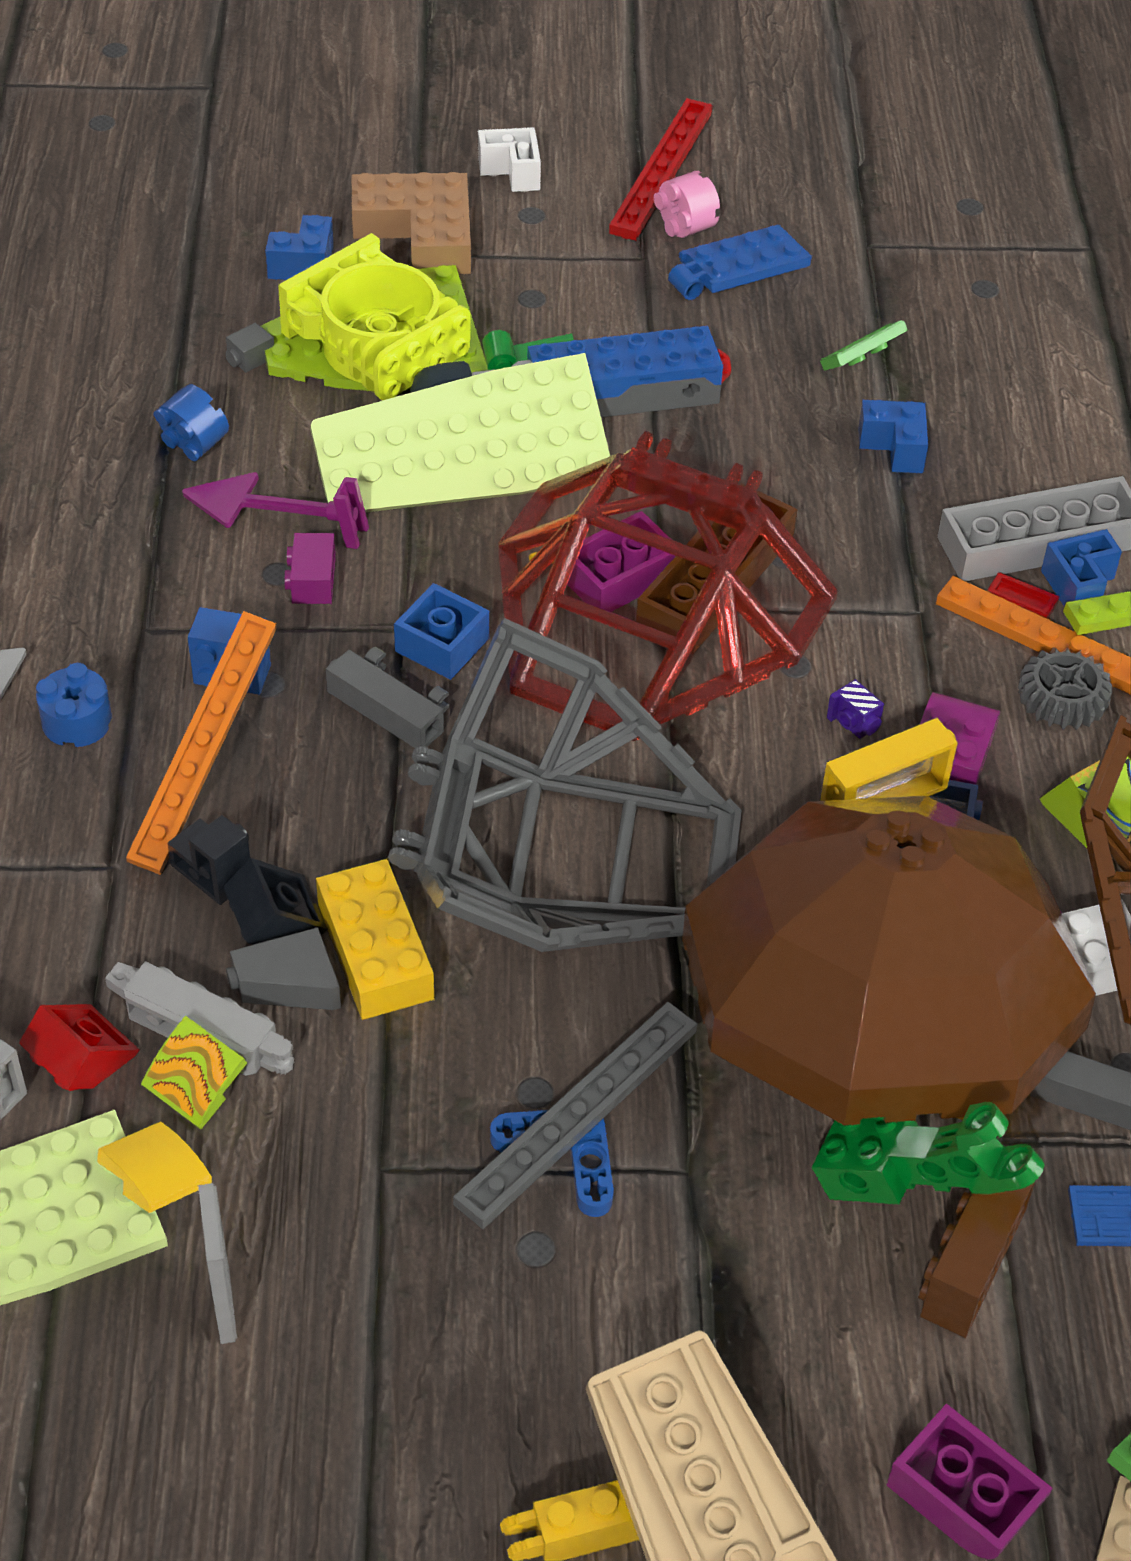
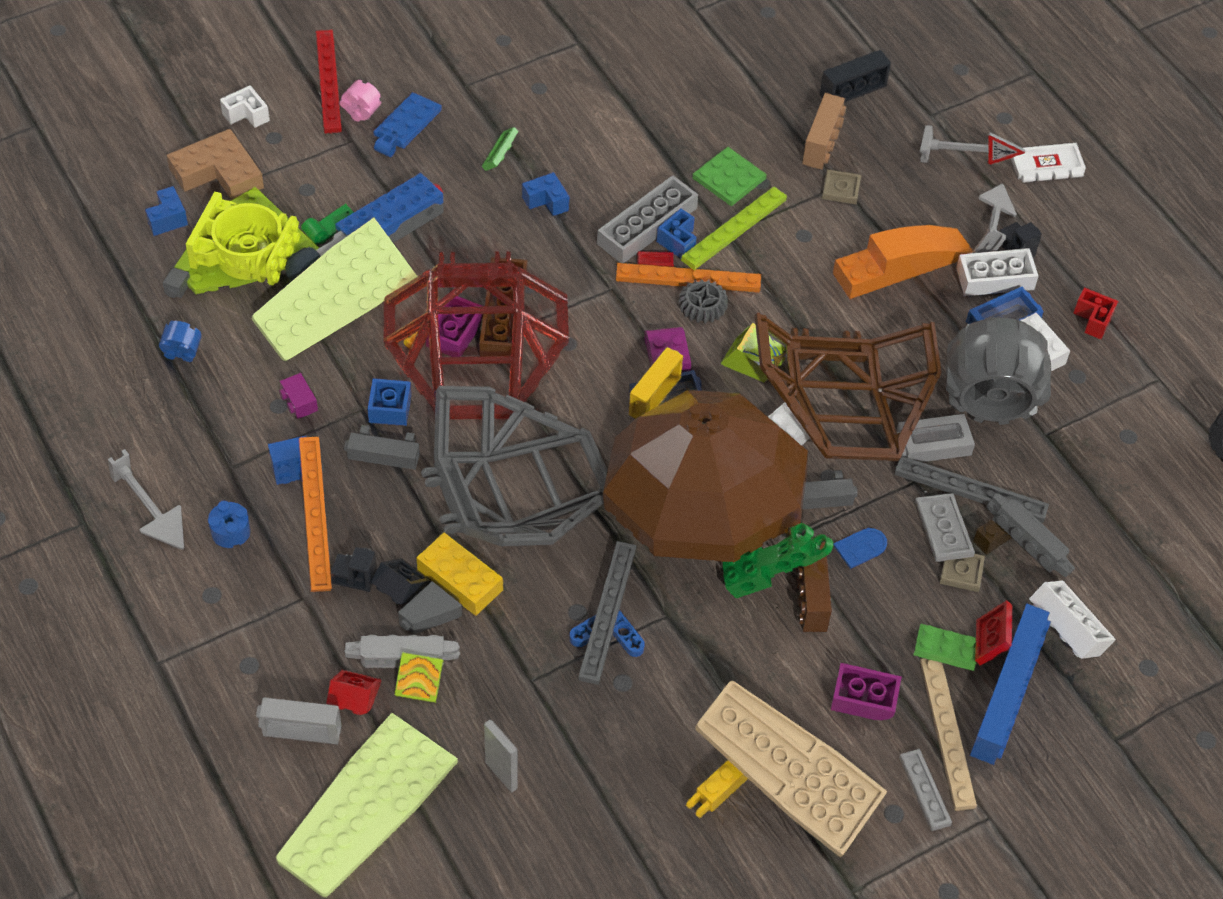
camera: 30 degrees left, 5 degrees up
(154, 1166) = (433, 728): yellow slope -> none
(228, 496) = (225, 373): magenta piece -> none
(856, 709) = (613, 355): dark purple brick -> none

